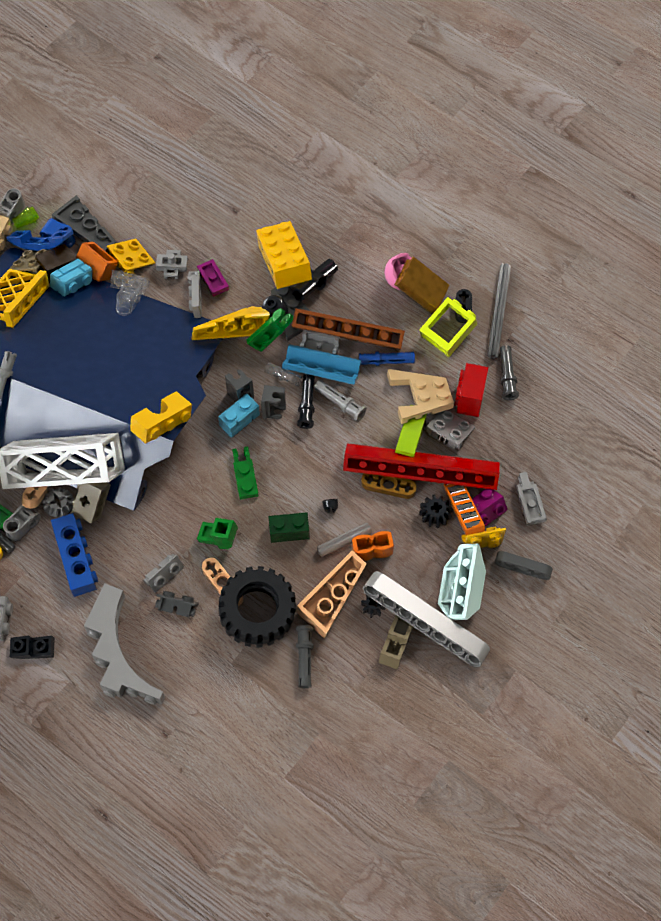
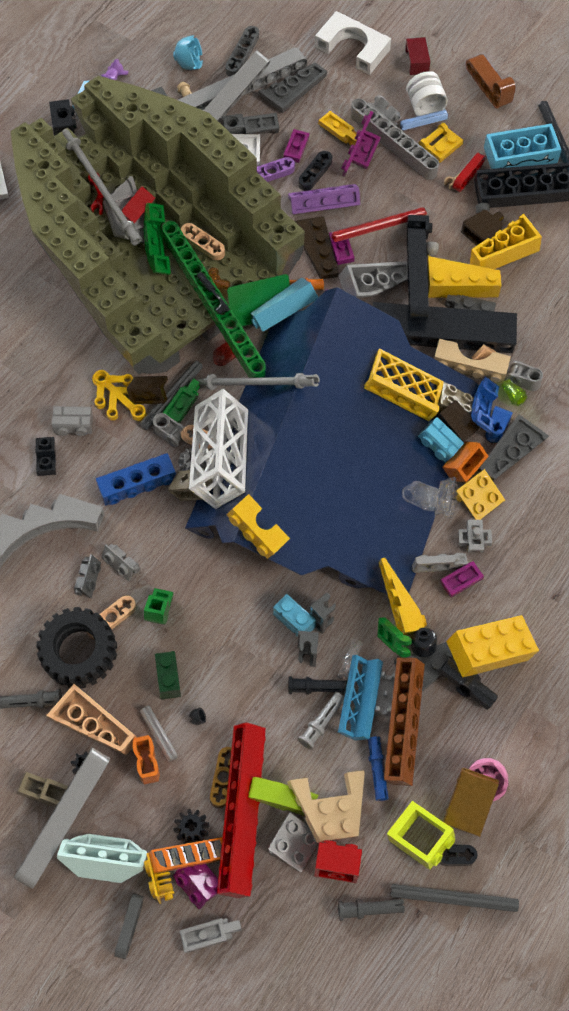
camera: 85 degrees right, 0 degrees up
(245, 475) = (230, 629): green hinge -> none

